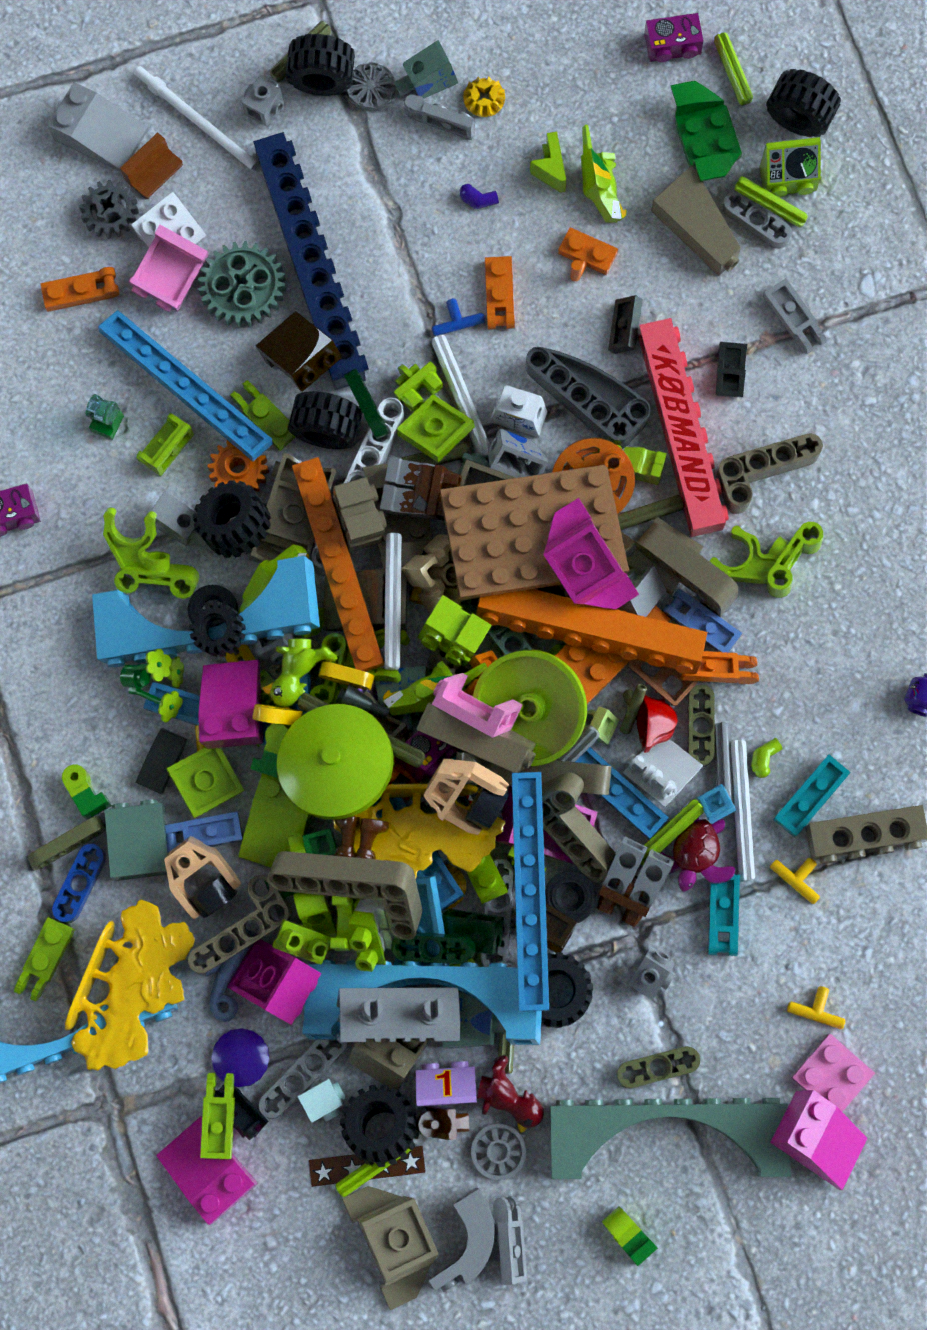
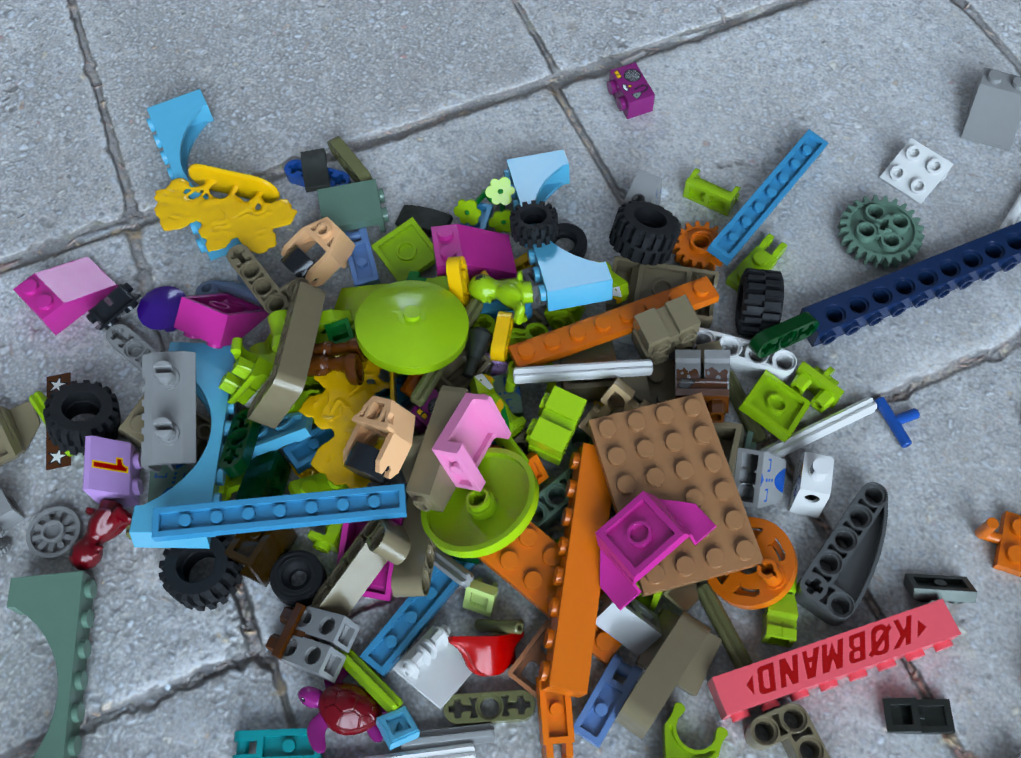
camera: 85 degrees right, 15 degrees down
(45, 956) = (255, 162): lime hinge -> none
(78, 880) = (315, 169): none -> pearl dark grey slope
(79, 289) = (840, 118): orange plate -> none
(79, 786) = (393, 169): leg -> none
(104, 415) = (728, 139): clear light blue leg -> none
(109, 209) = (922, 125): dark grey gear -> none
(146, 566) = (593, 181): lime piece -> none
(151, 166) = (974, 152): dark orange panel -> none
(168, 269) = (876, 172): bright pink panel -> none
(218, 1120) = (101, 284): lime hinge -> none
(299, 350) = (823, 276): dark brown panel -> none
(302, 942) = (251, 327): lime hips -> none
(323, 1101) = (115, 372): light aqua brick -> none
(442, 1123) = (74, 475): reddish brown hips -> none
(499, 291) = (939, 457): orange plate -> none
(652, 973) = (213, 667): light grey brick -> none
(677, 1054) = (114, 709): olive beam -> none

